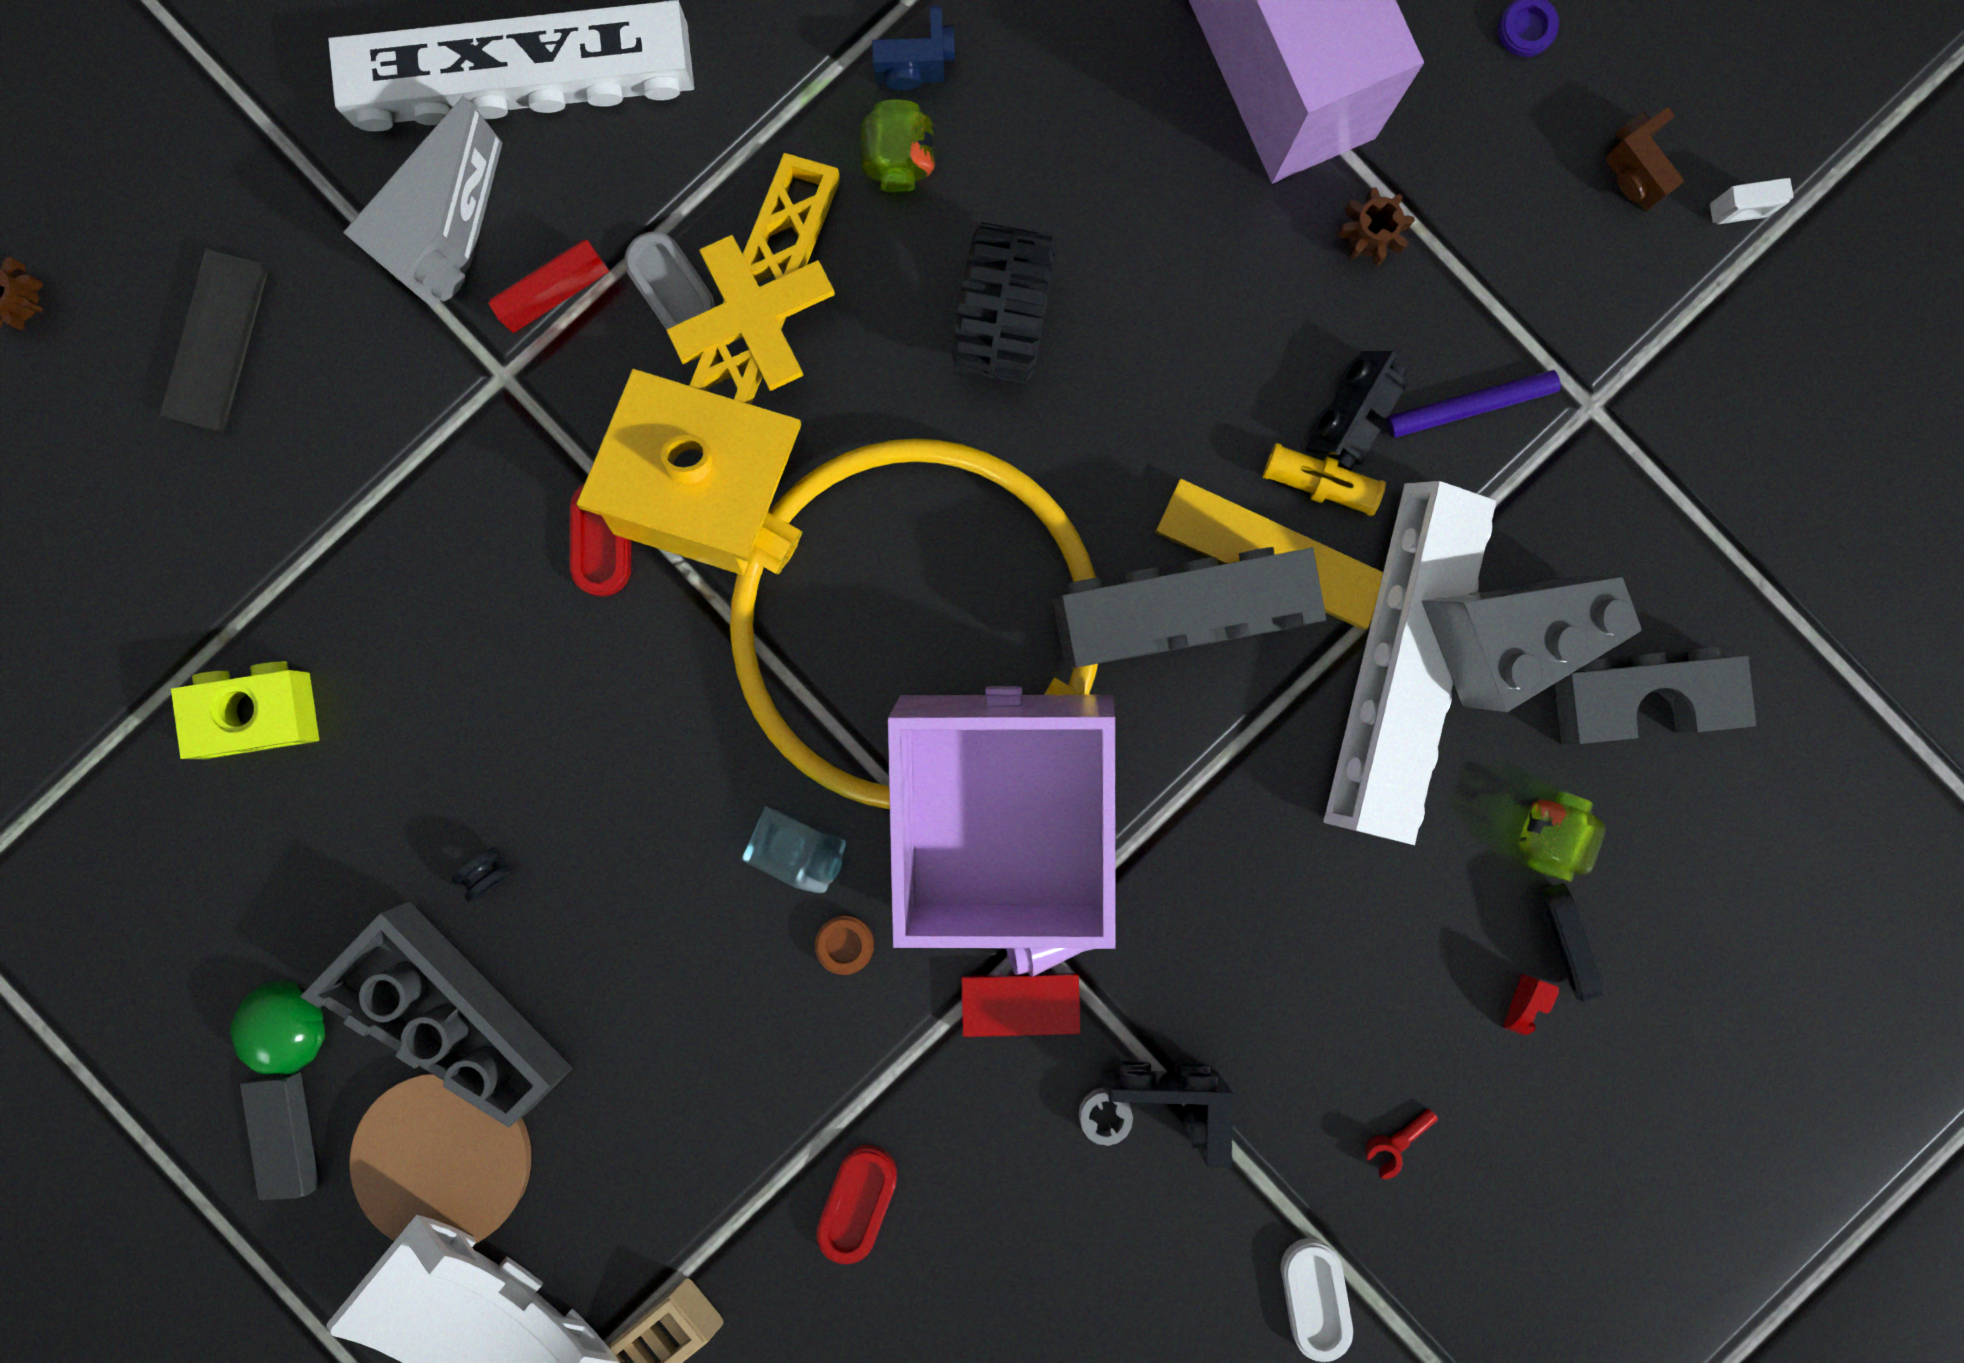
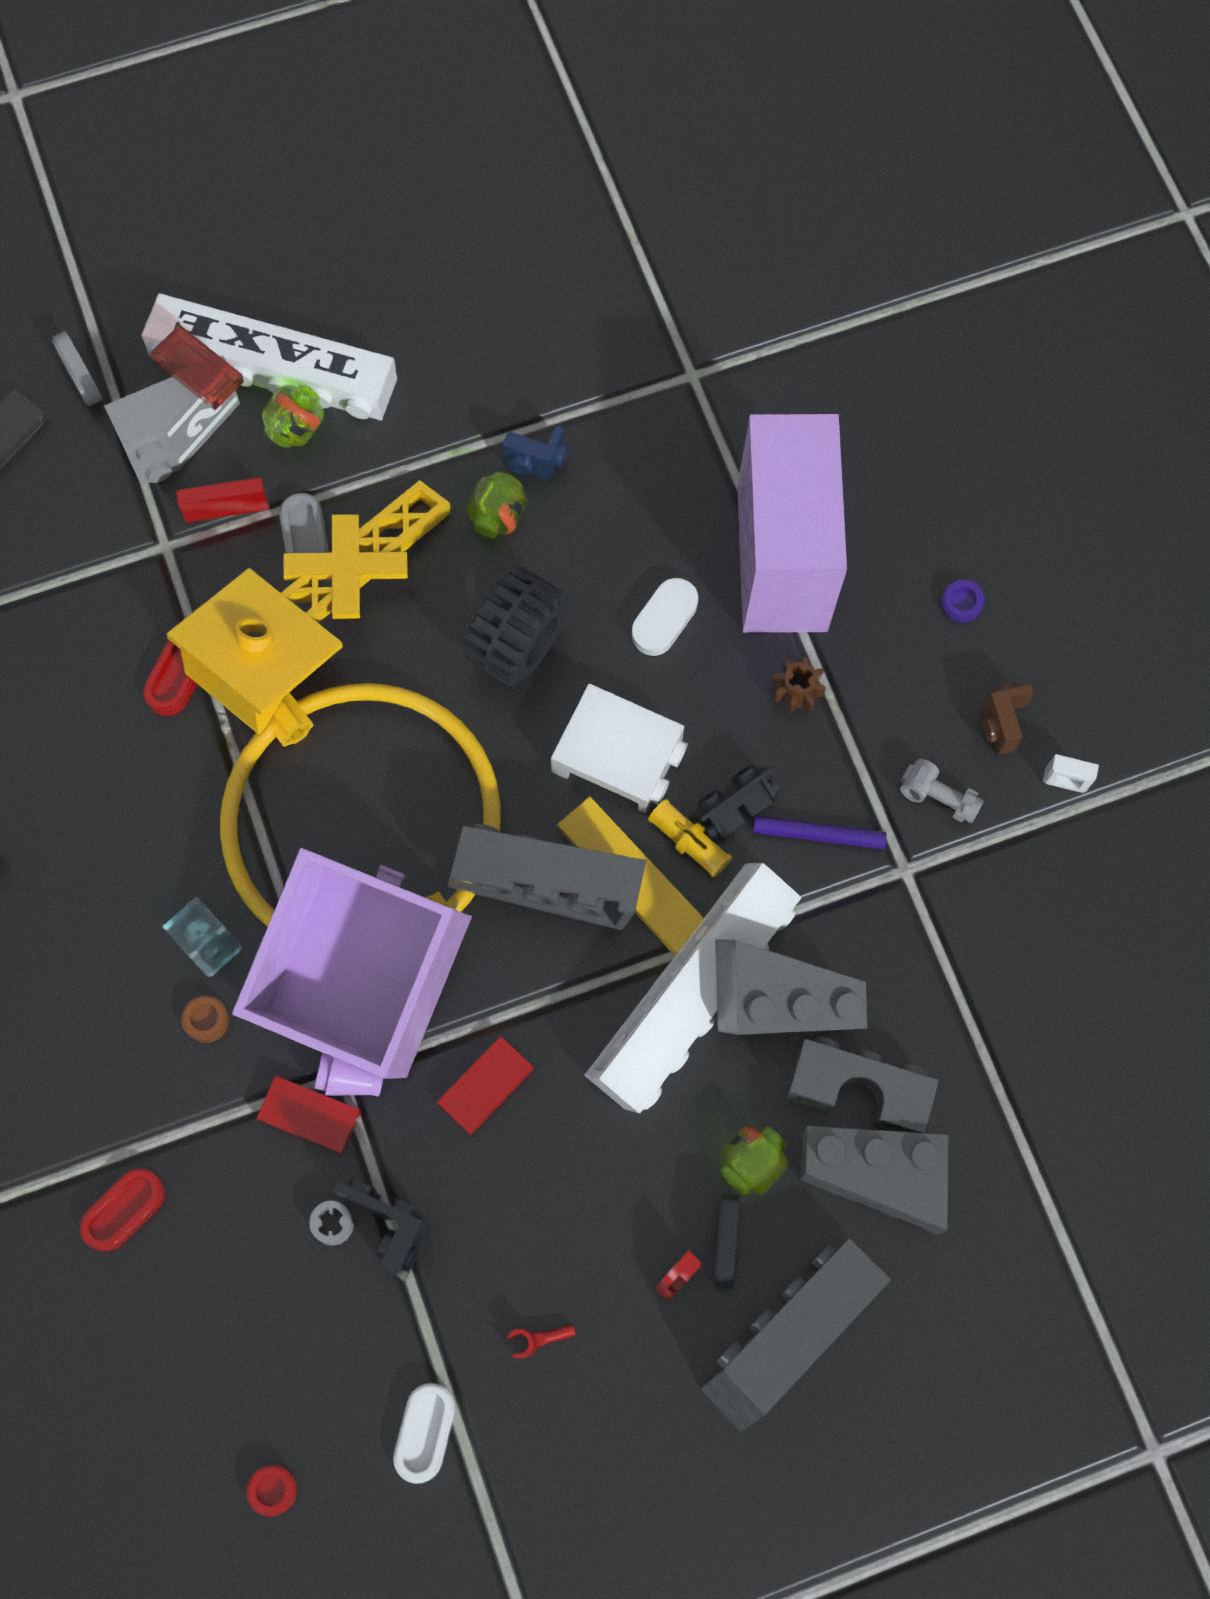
camera: 25 degrees right, 15 degrees down
(271, 187) = (76, 368): none -> light grey tile
(439, 128) = (197, 367): none -> clear red tile
(584, 134) = (292, 415): none -> clear neon green head
(1170, 205) = (664, 616): none -> white tile
(1193, 402) = (619, 747): none -> white panel
(1210, 882) = (485, 1086): none -> red tile
(1571, 289) = (921, 781): none -> light grey bar
(1697, 1020) = (795, 1335): none -> dark grey wedge
(1718, 786) = (881, 1169): none -> dark grey wedge

